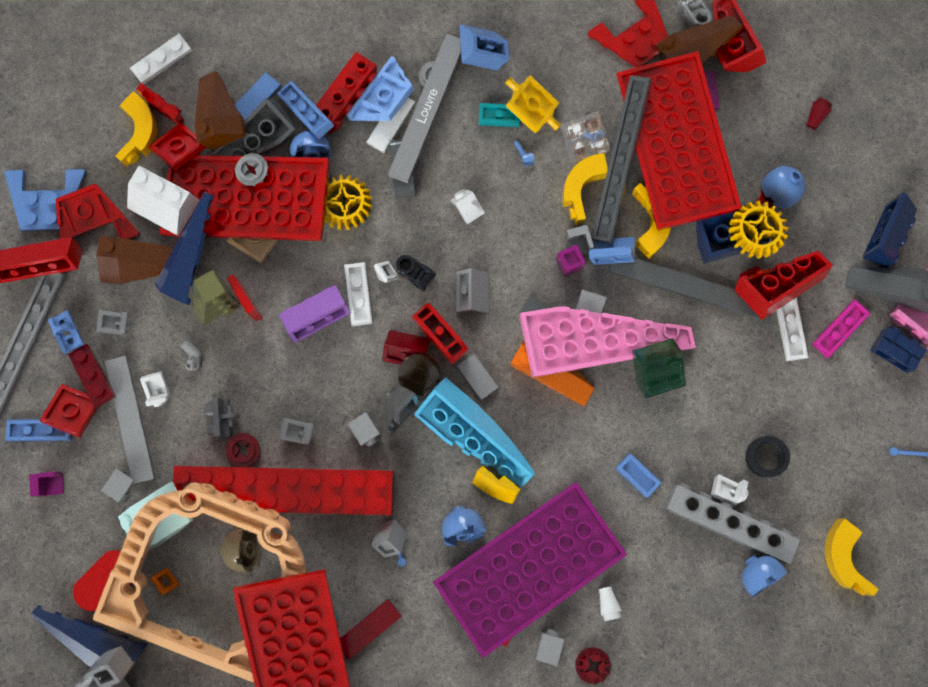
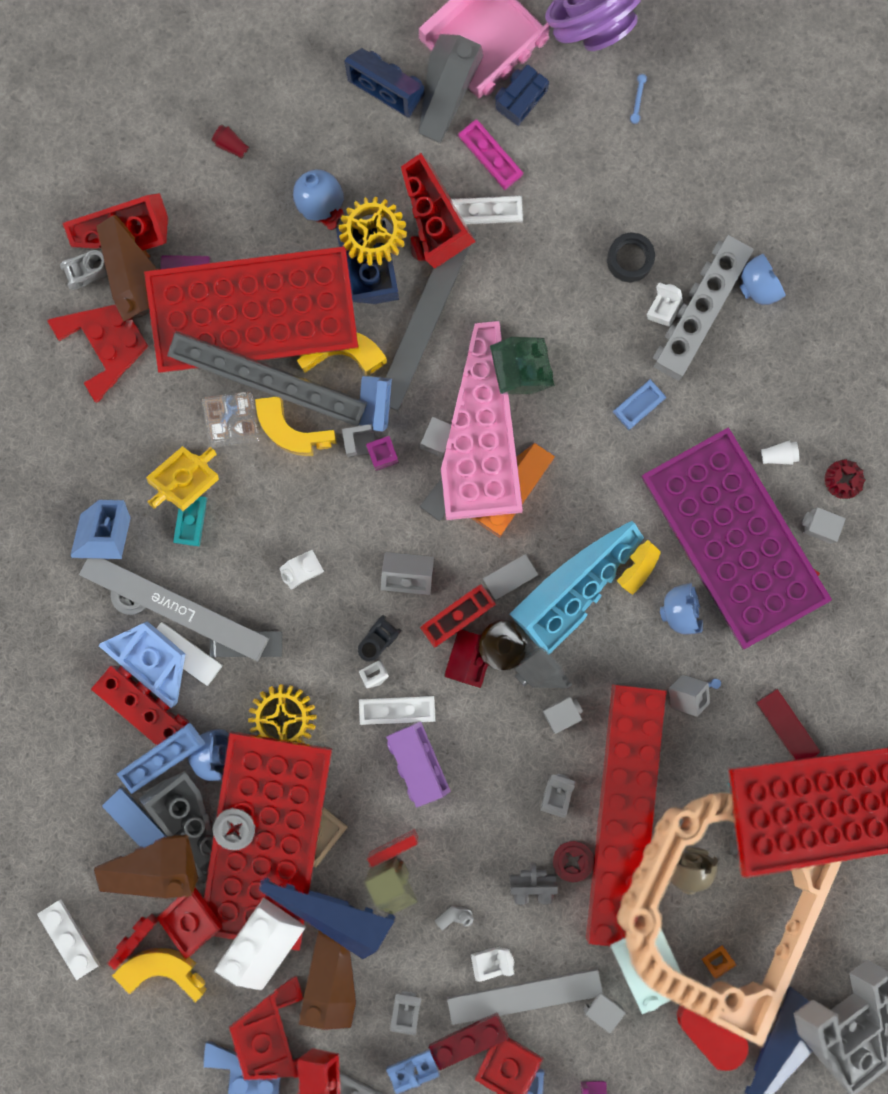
camera: 85 degrees left, 5 degrees up
(527, 158) = (249, 491): medium blue hand -> none
(838, 557) = (744, 195): yellow arch -> none

